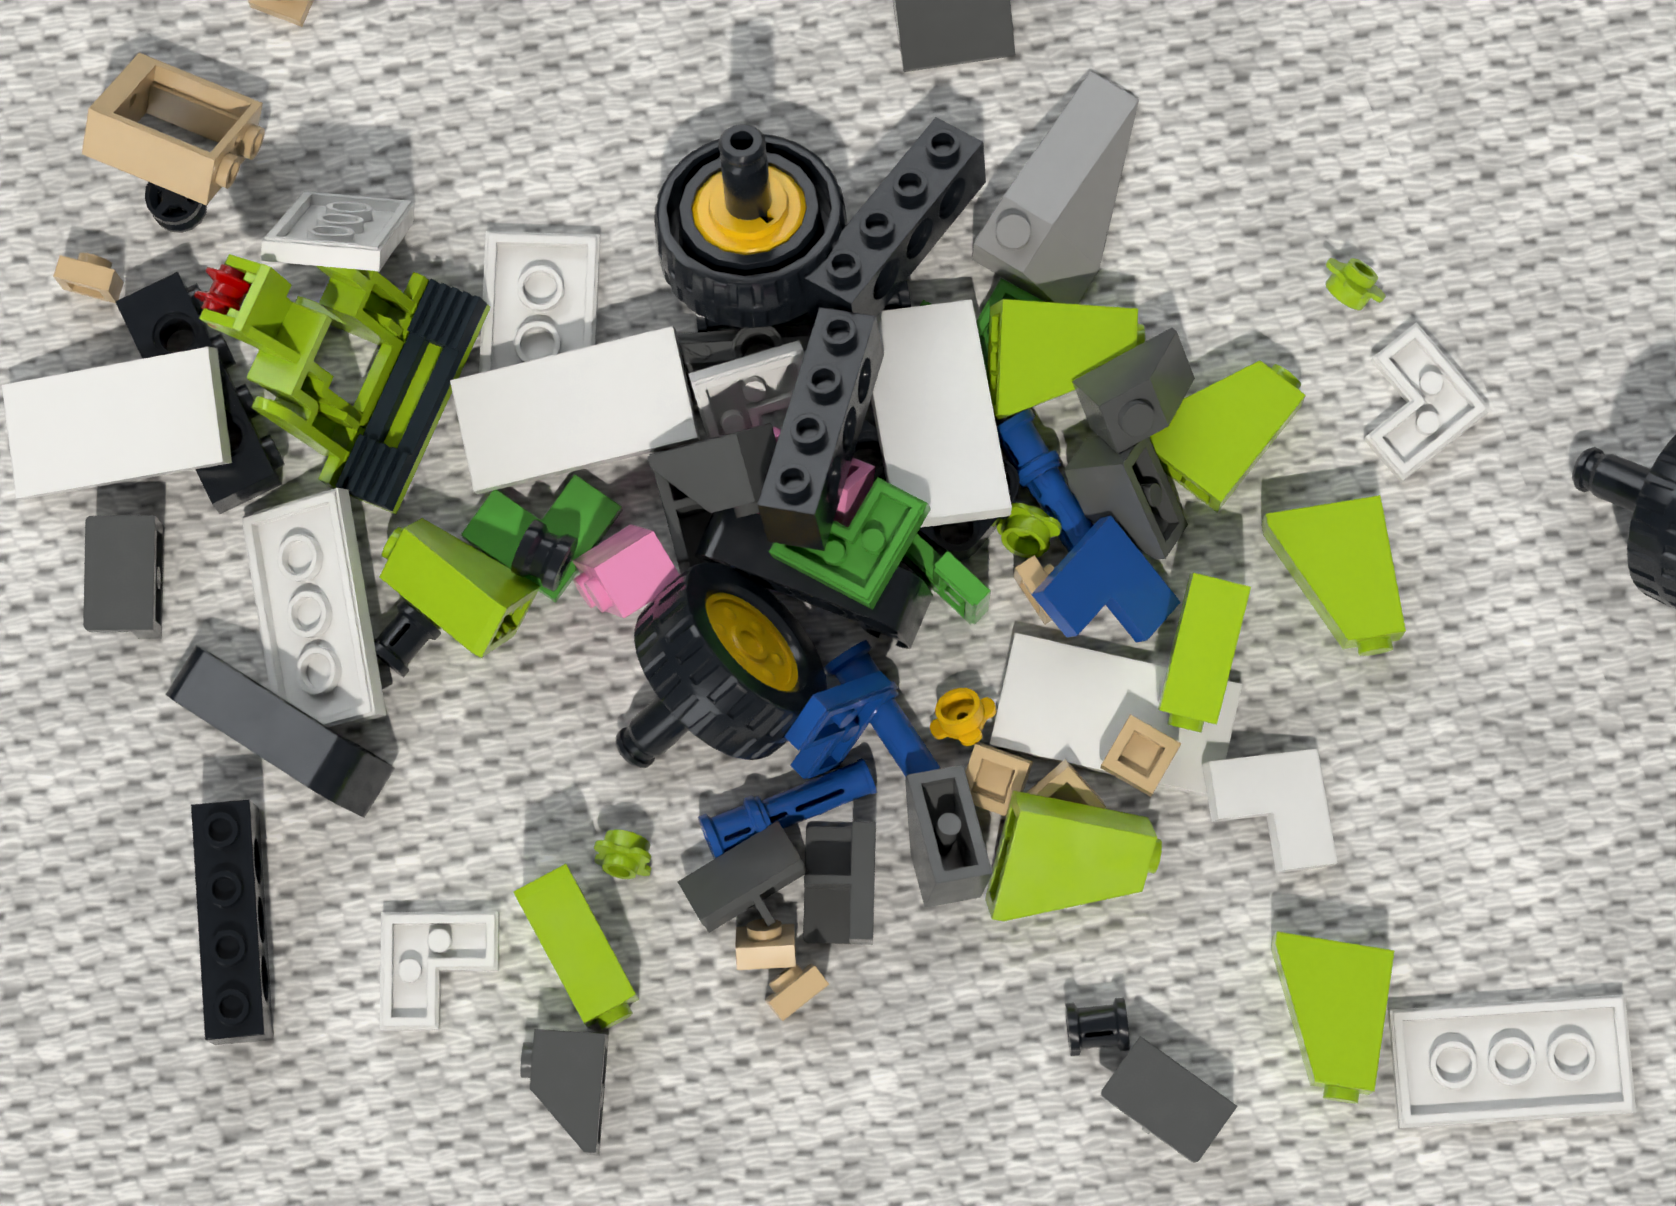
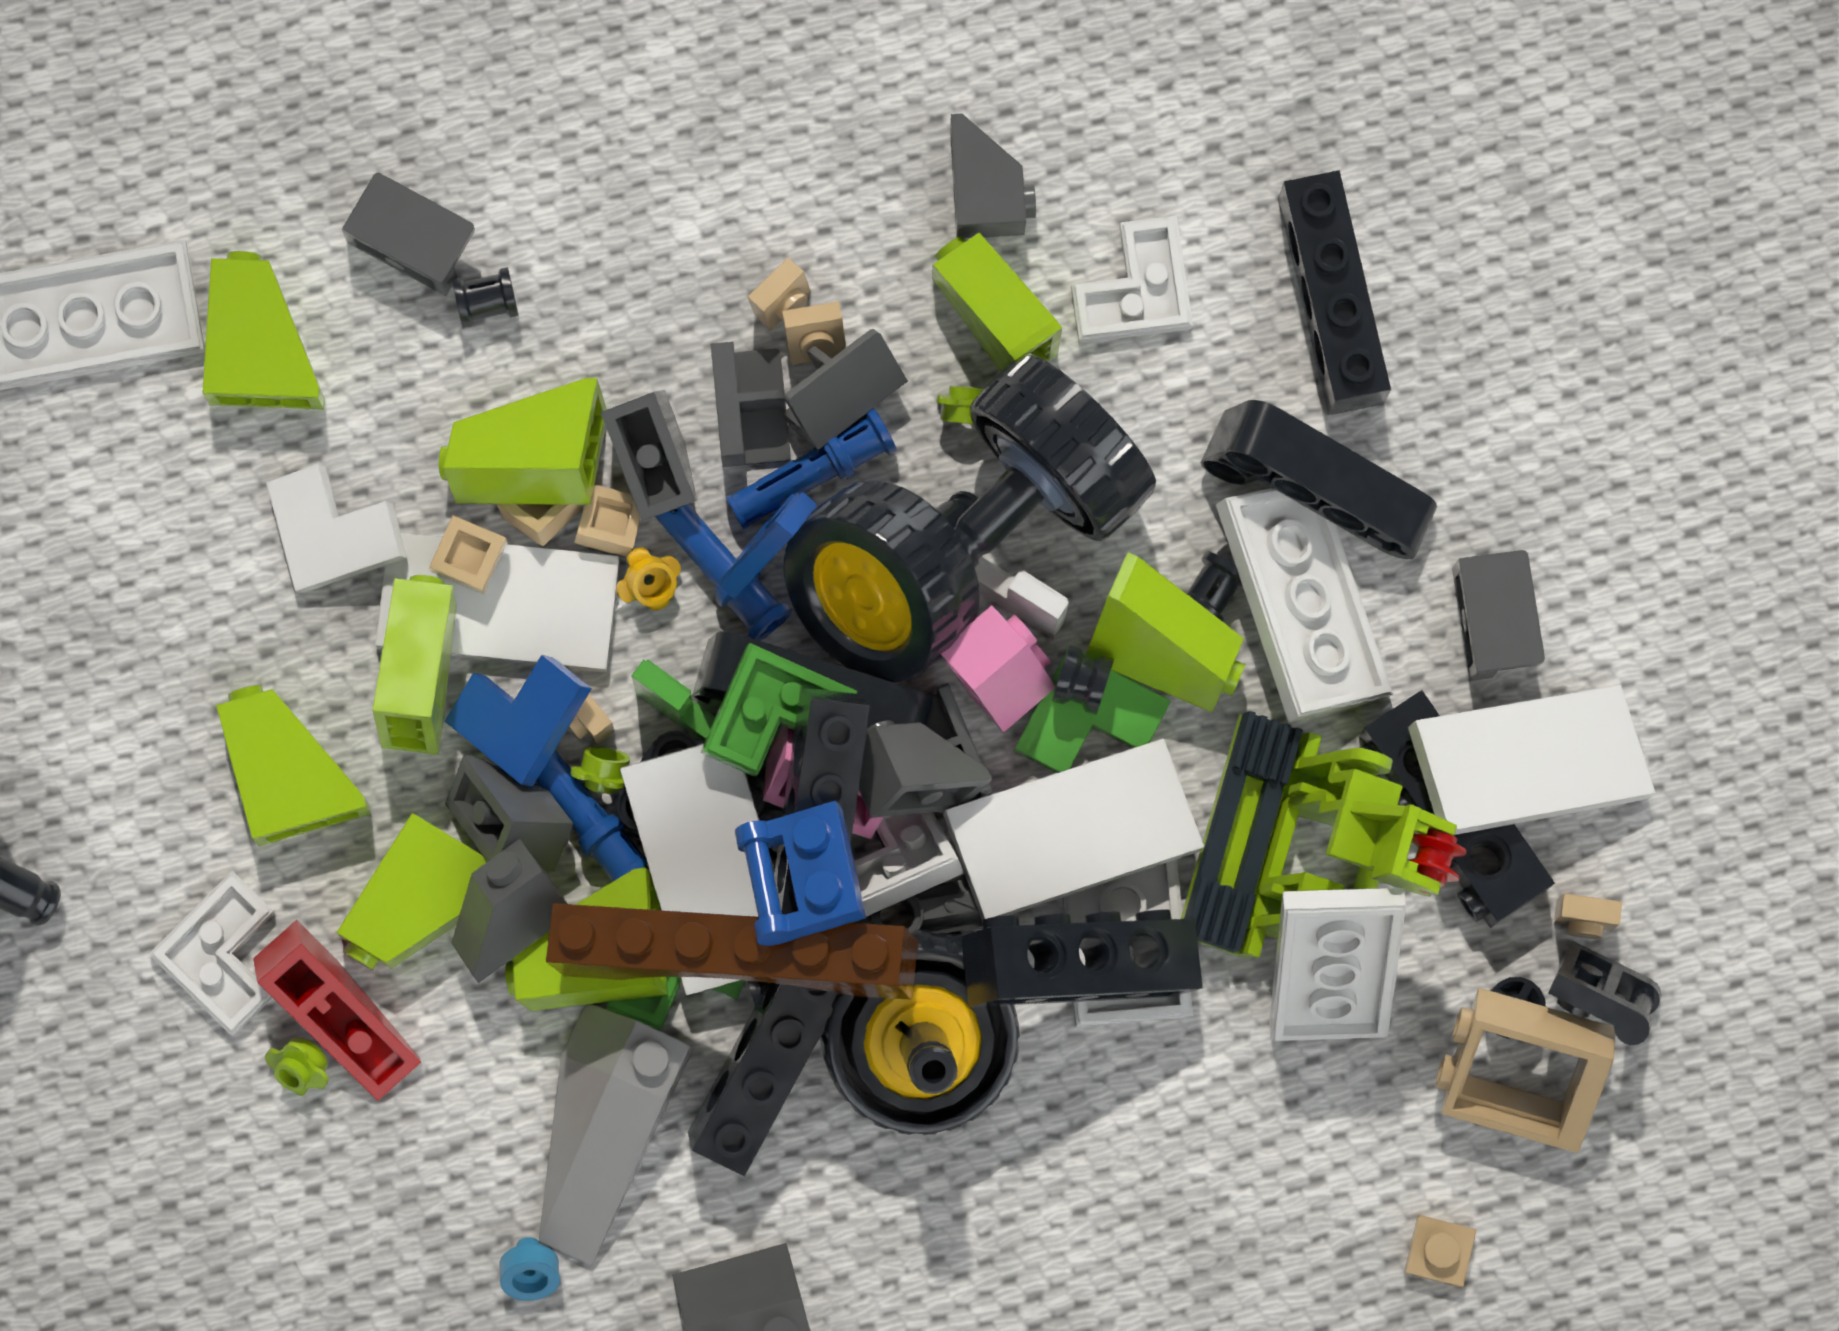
camera: 165 degrees right, 0 degrees up
(100, 198) = (1588, 985): none -> black plate
(507, 263) = (1002, 975): none -> black brick
(543, 768) = (1056, 454): none -> black wheel
(594, 647) = (1023, 596): none -> white tile
(828, 350) = (819, 870): none -> blue plate
(883, 288) = (662, 943): none -> reddish brown arch
(1150, 69) = (529, 1270): none -> dark azure tile
(1317, 333) = (334, 1009): none -> red slope

